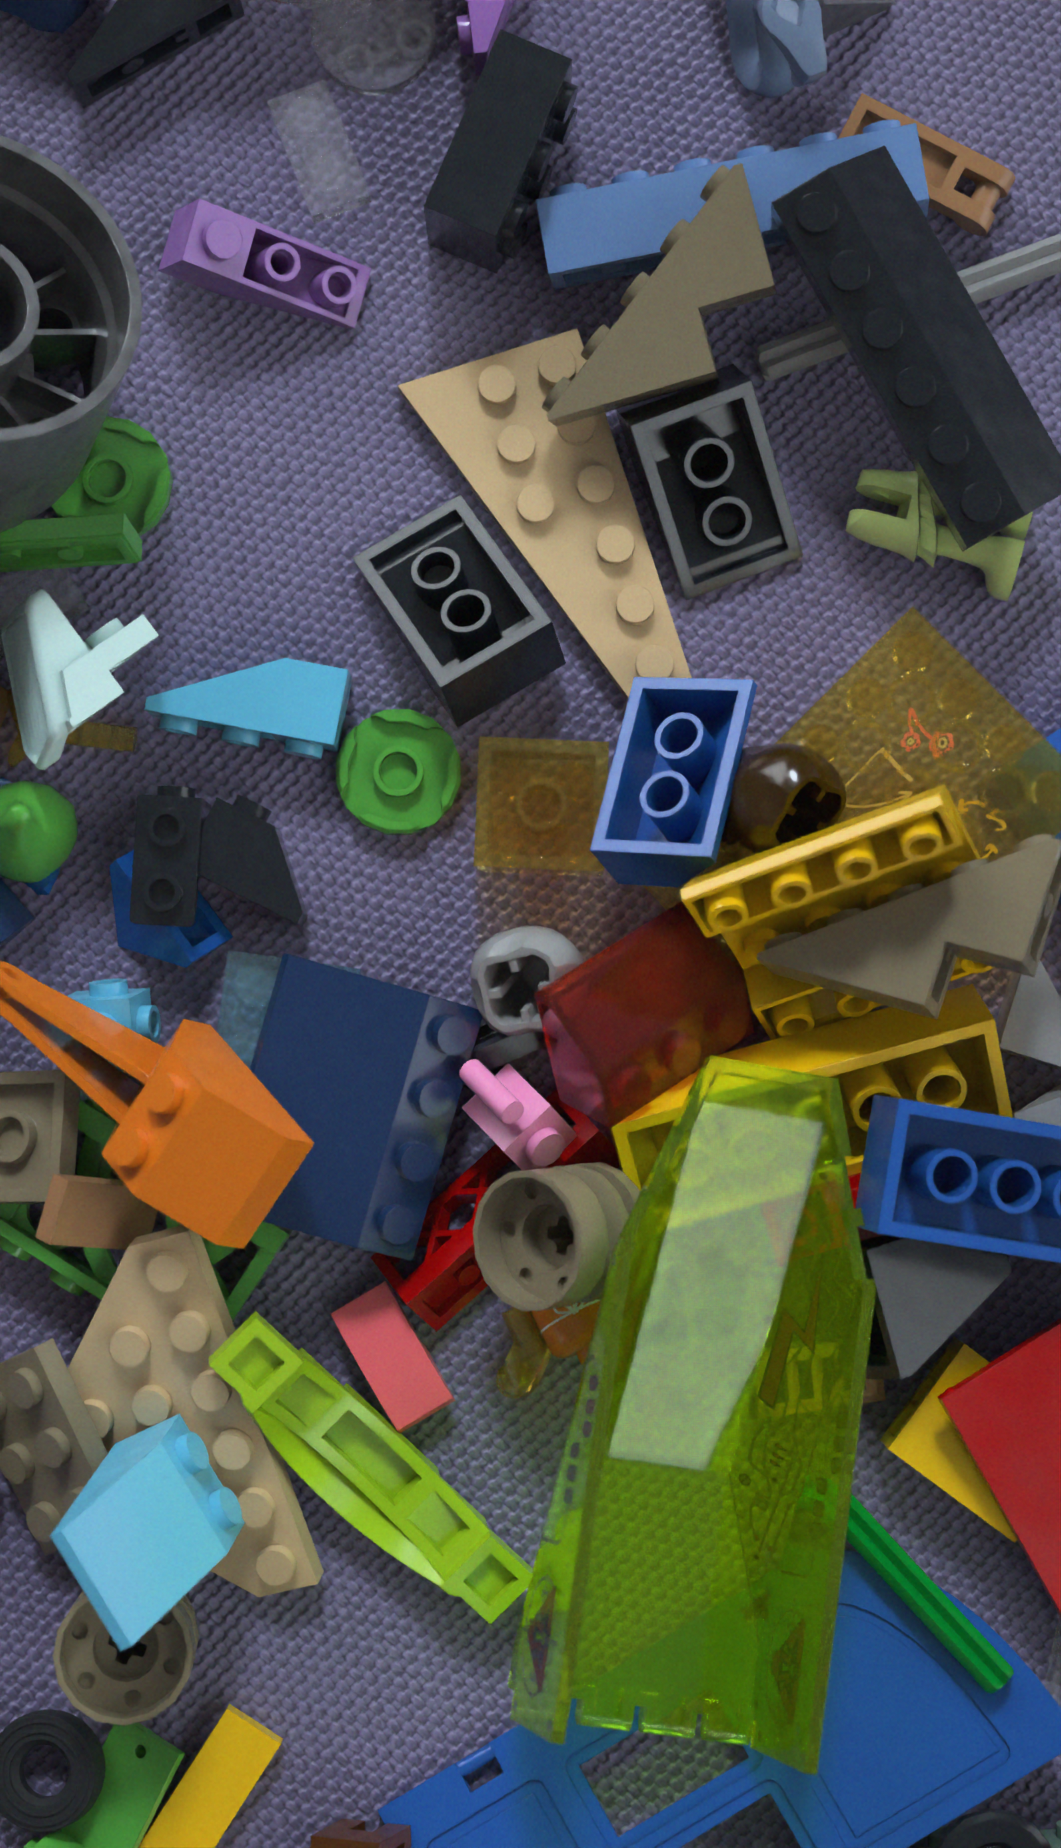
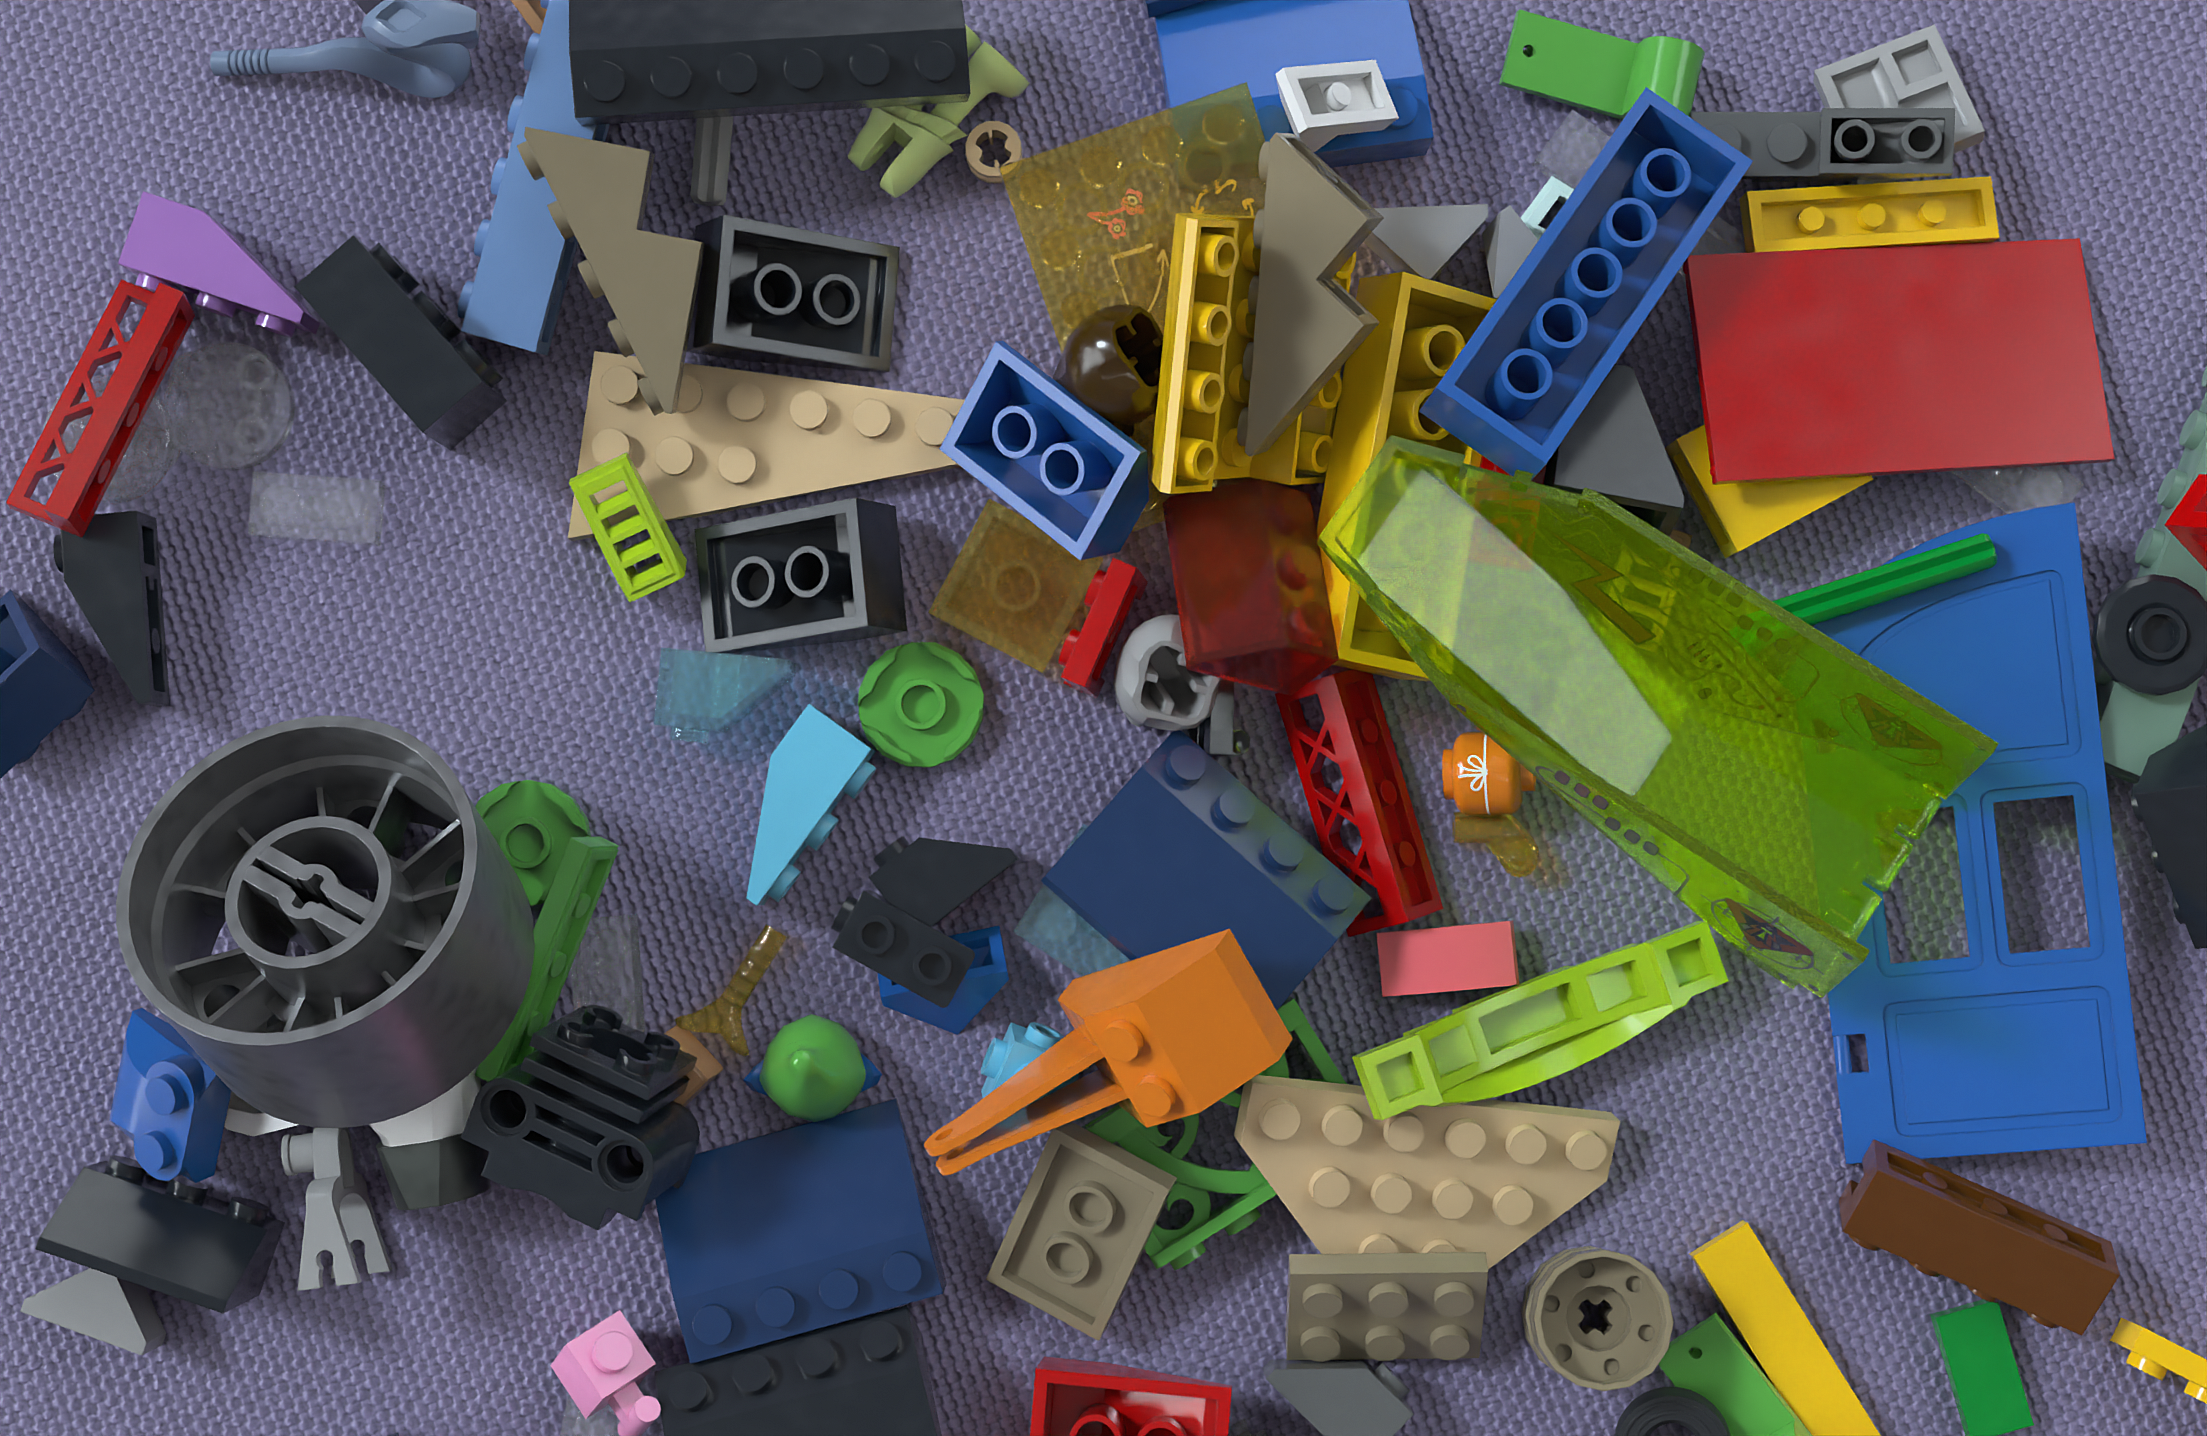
camera: 65 degrees left, 0 degrees up
(59, 677) = (691, 967): light aqua piece -> none
(93, 1213) = (1195, 1161): medium nougat tile -> none
(147, 1527) = (1501, 1241): medium azure slope -> none
(262, 265) = (397, 609): medium lavender slope -> none
(320, 579) = (713, 690): none -> clear light blue slope
(399, 441) = (653, 576): none -> lime slope
(514, 897) = (1089, 650): none -> red plate
(515, 1116) = (1286, 743): bright pink brick -> none
(551, 1233) = (1409, 755): dark tan wheel -> none
(947, 586) = (974, 154): none -> tan bush

